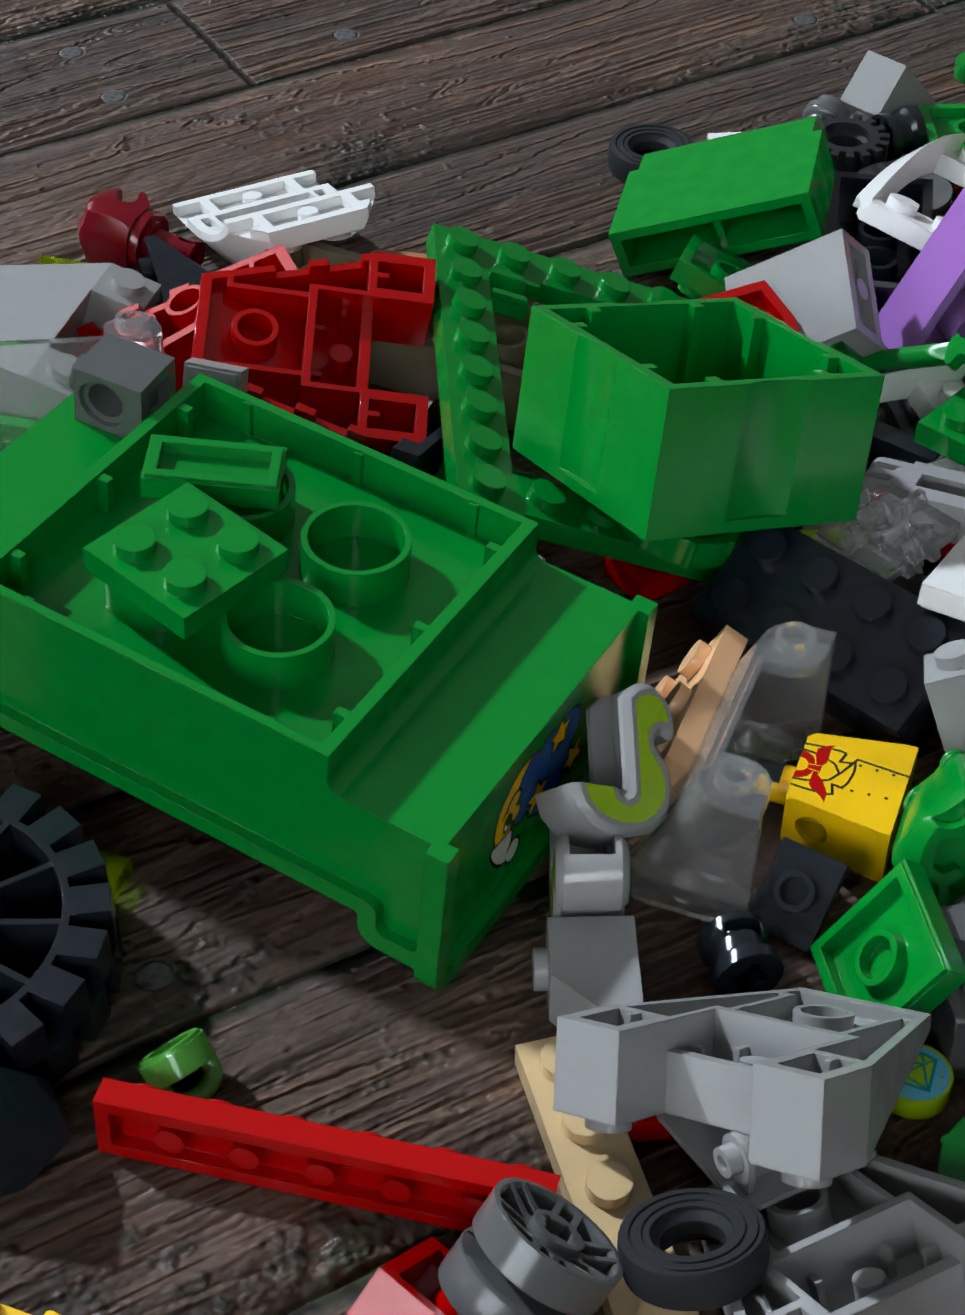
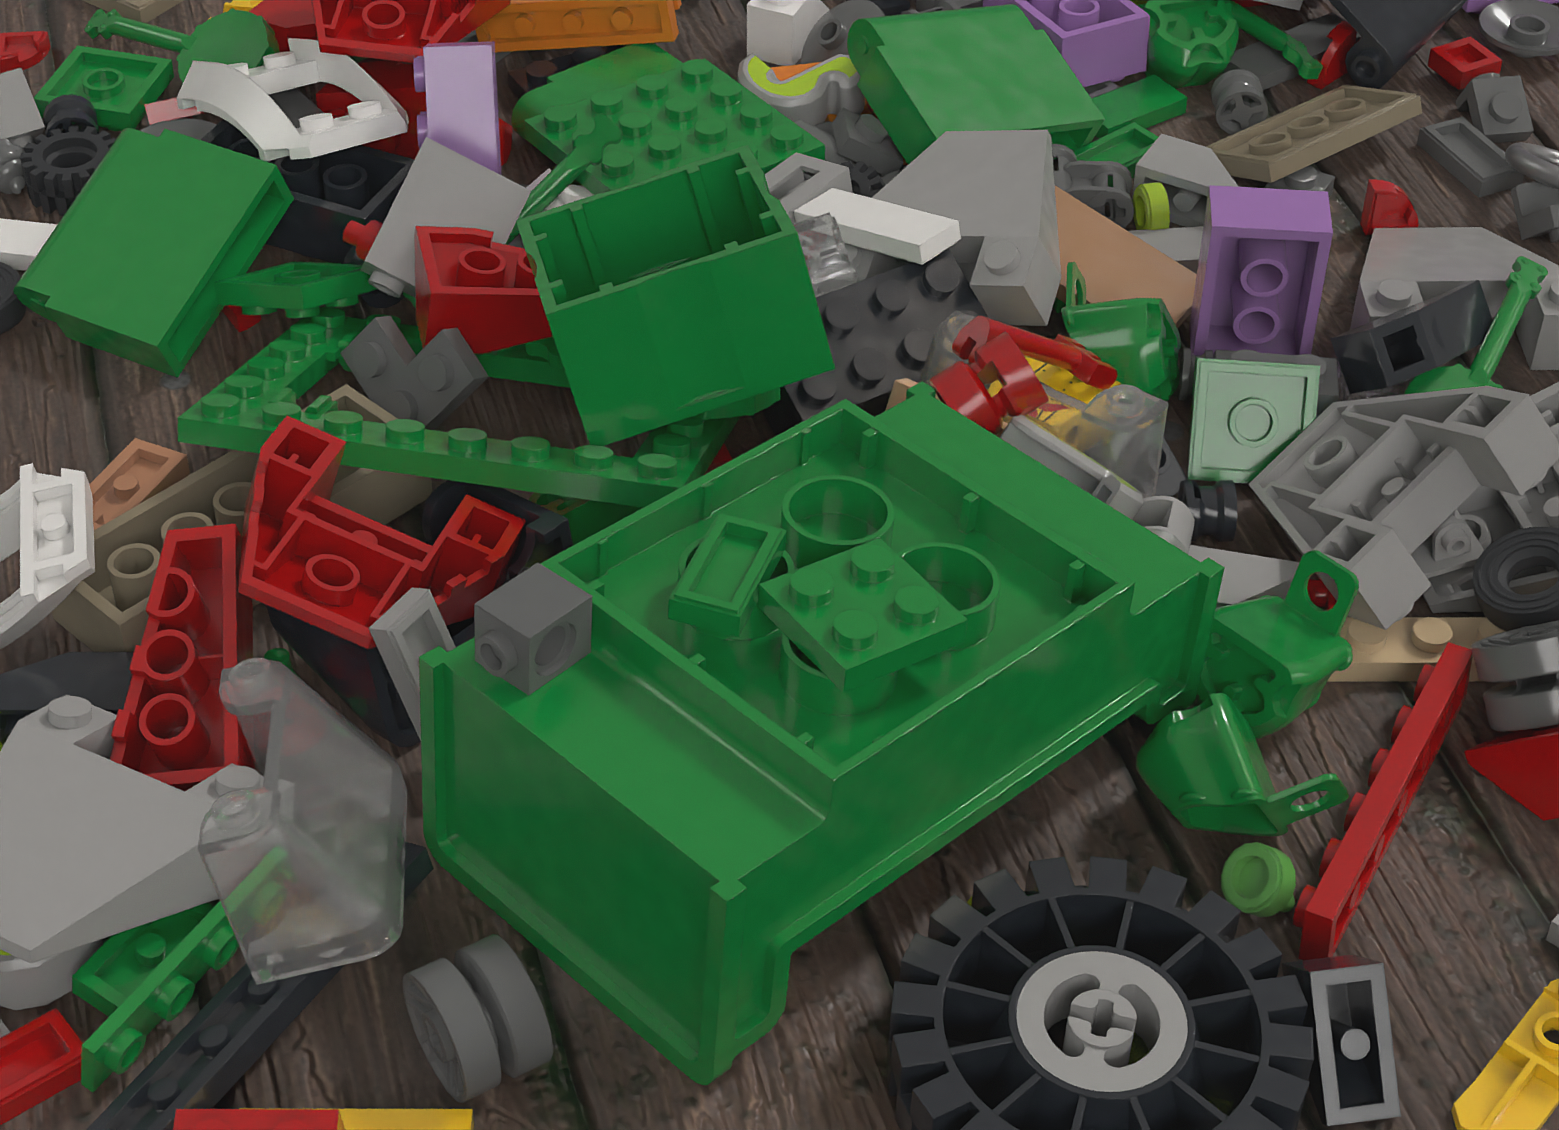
camera: 75 degrees left, 0 degrees up
(294, 1000) = (1215, 778): none -> green piece
(478, 1011) = (1279, 652): none -> green piece
(688, 661) = (1000, 359): none -> red wheel
(883, 778) = (1061, 352): none -> red hinge

